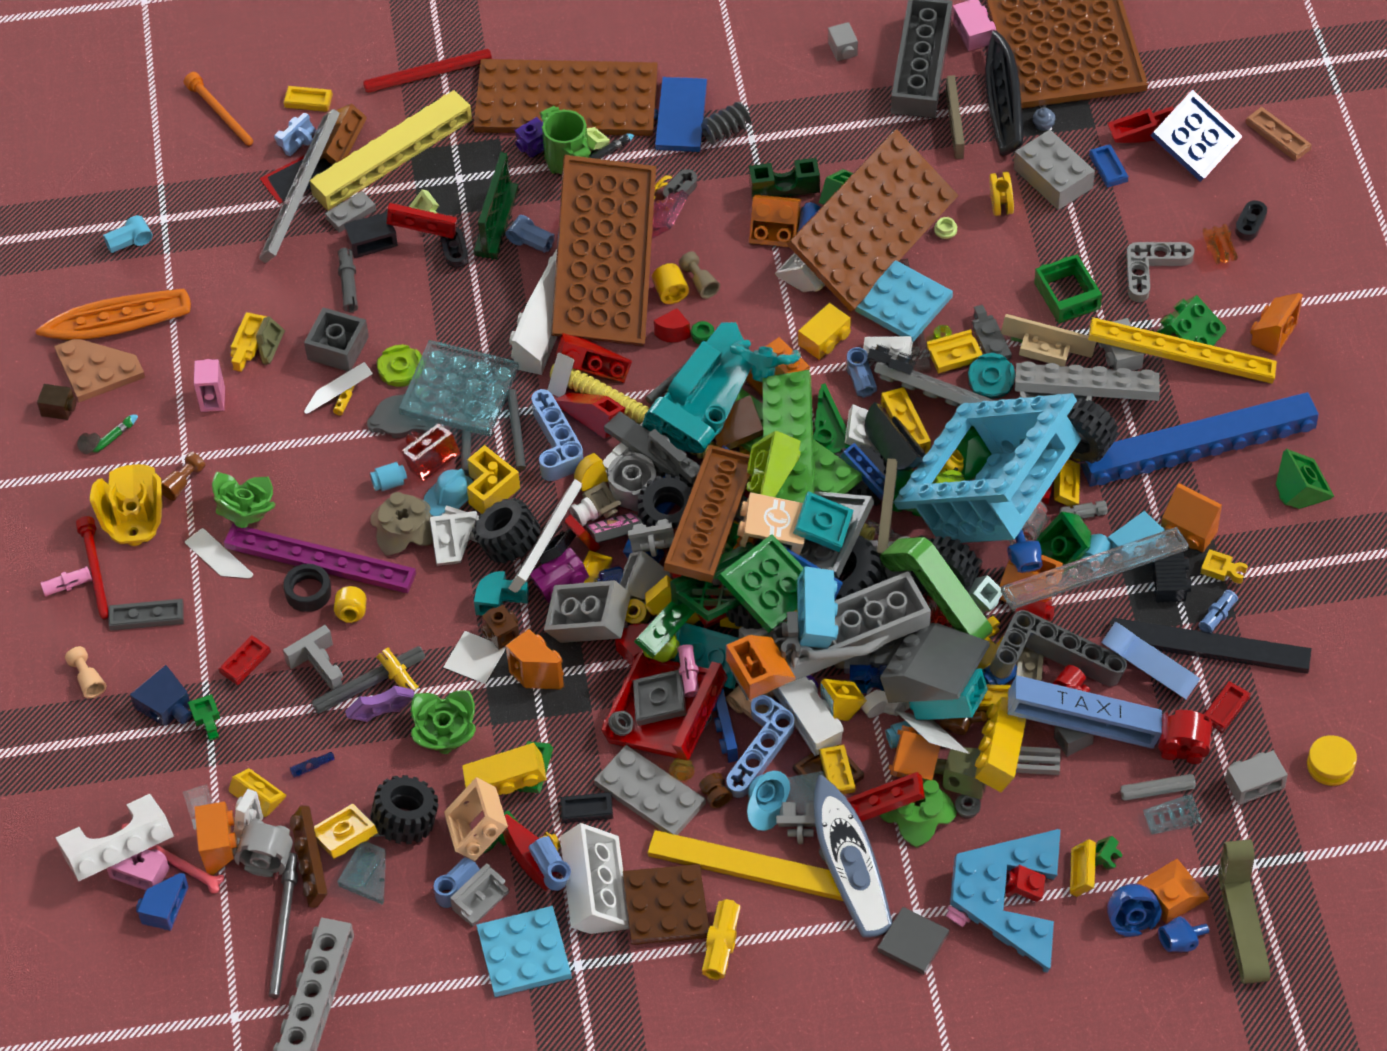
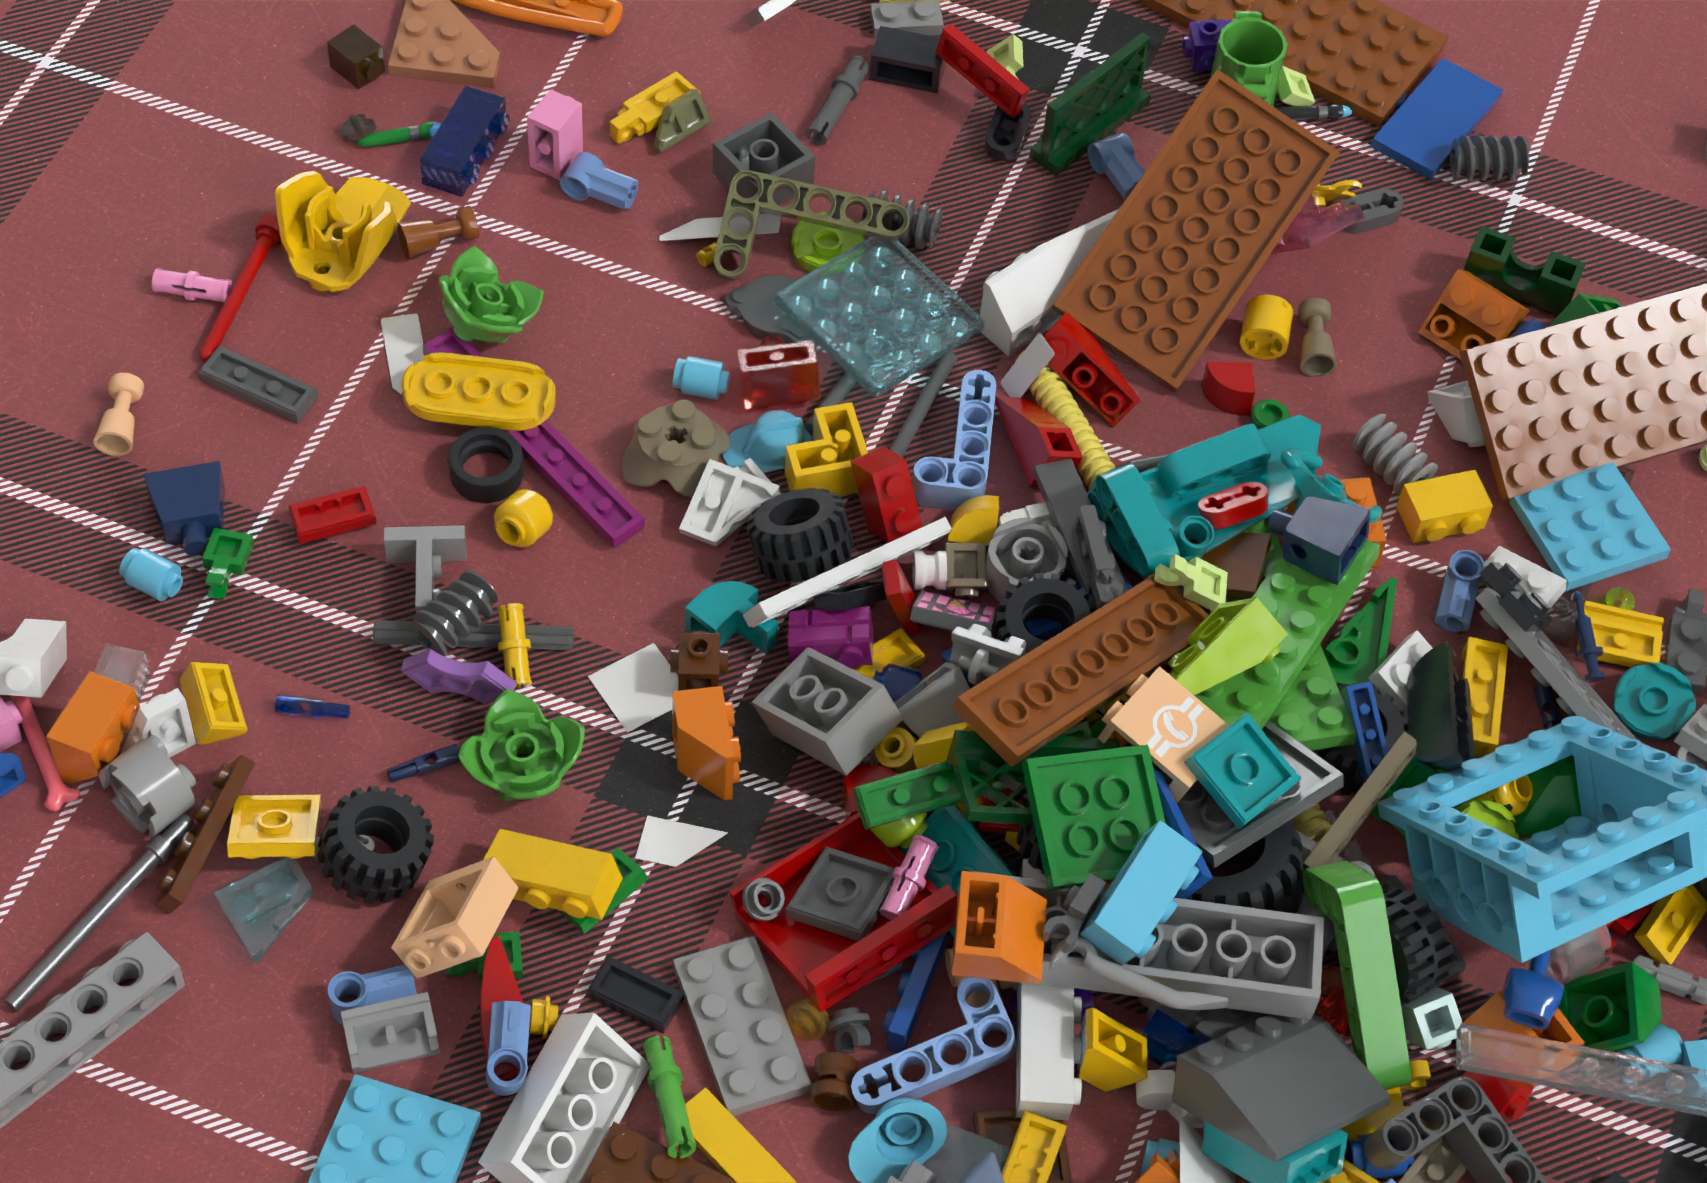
camera: 25 degrees right, 0 degrees up
(157, 416) = (464, 141): none -> clear blue brick
(172, 744) = (151, 573): none -> medium azure brick
(243, 400) = (590, 178): none -> medium blue piece
(275, 550) = (478, 391): none -> yellow tile
(356, 671) = (451, 612): none -> dark grey piece
(379, 354) = (798, 210): none -> olive beam
(400, 750) = (443, 757): none -> dark blue pin
(434, 329) = (922, 225): none -> dark grey piece
(537, 484) = (886, 494): none -> red brick
(549, 724) = (673, 842): none -> white sticker
(634, 838) = (666, 1083): none -> bright green pin
(703, 759) = (850, 1029): none -> dark grey plate
(721, 389) = (1234, 504): none -> red beam
(732, 437) = (1201, 580): none -> yellowish green plate
(779, 381) = (1322, 536): none -> torso
(780, 319) = (1389, 456): none -> light grey piece
(937, 405) = (1546, 701): none -> dark blue pin
(940, 362) = (1589, 650): none -> dark blue piece

